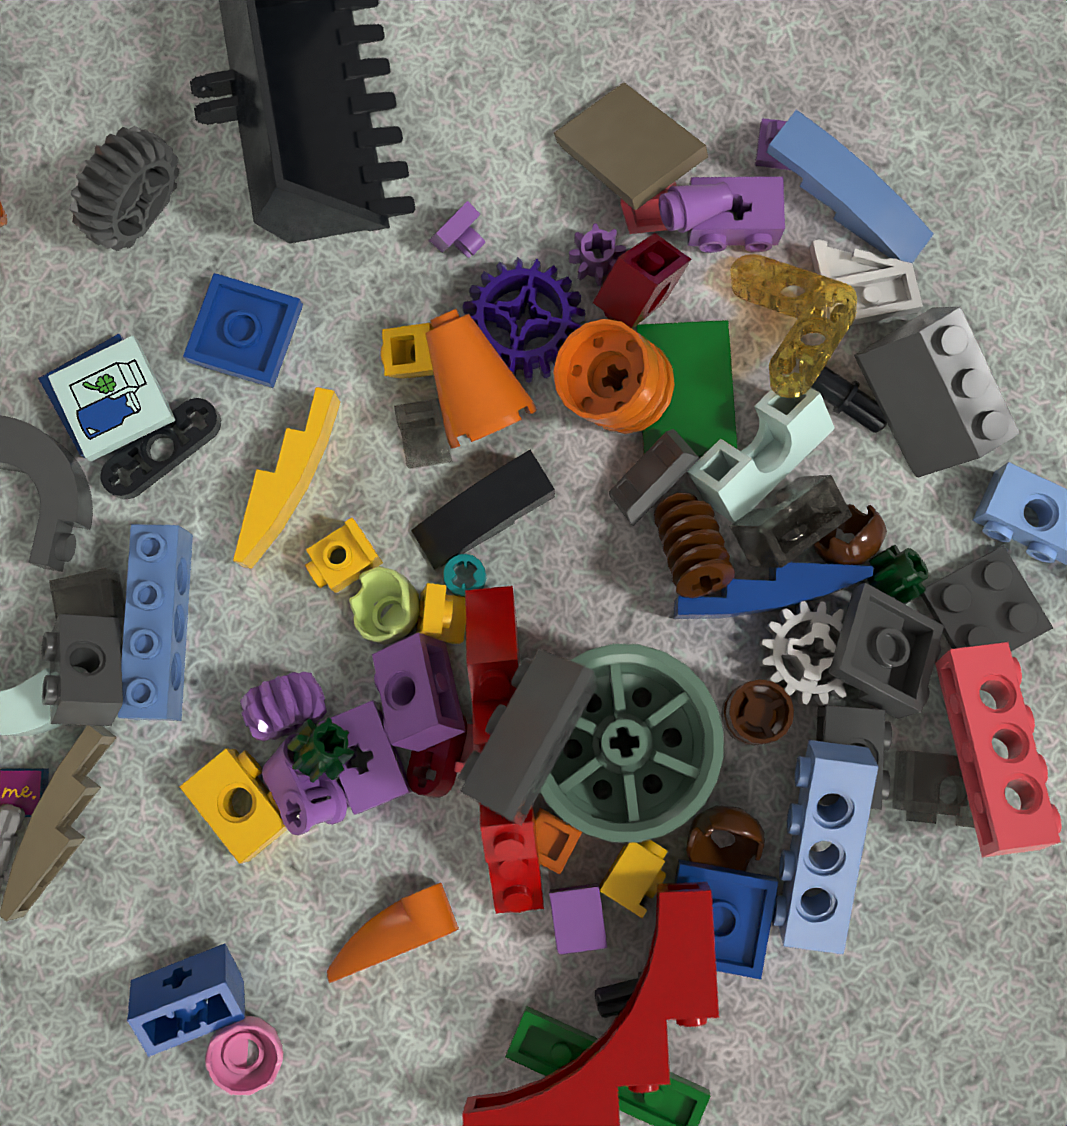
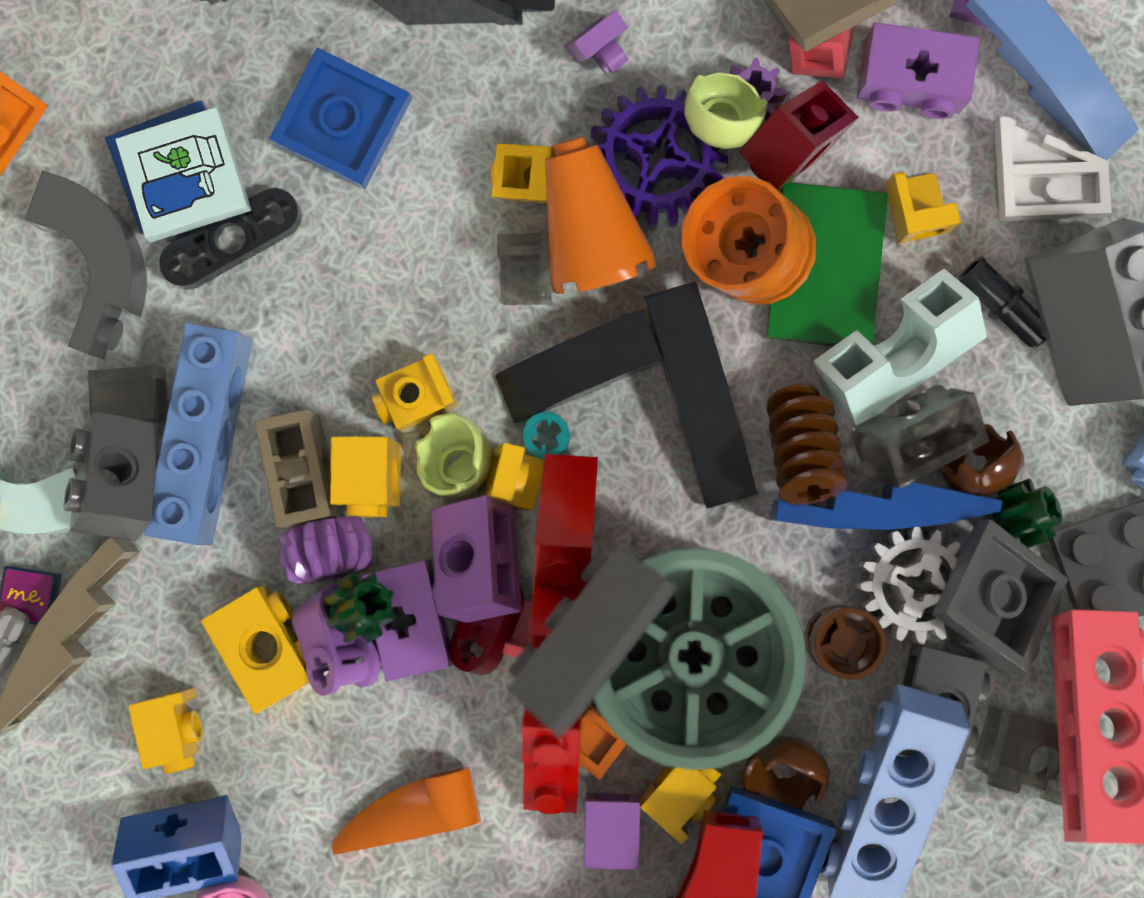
camera: 15 degrees right, 5 degrees up
(162, 893) = (167, 731): none -> yellow brick
(247, 636) = (296, 468): none -> dark tan brick
(279, 493) = (353, 312): yellow slope -> none
(309, 632) = (365, 475): none -> yellow brick
(573, 269) = (724, 110): none -> yellowish green hair
(594, 518) = (700, 394): none -> black slope
(653, 476) = (774, 358): dark grey tile -> none
(693, 204) = (870, 56): medium lavender cone -> none
(755, 329) = (919, 207): none -> yellow panel
(809, 310) = (982, 196): clear yellow beam -> none

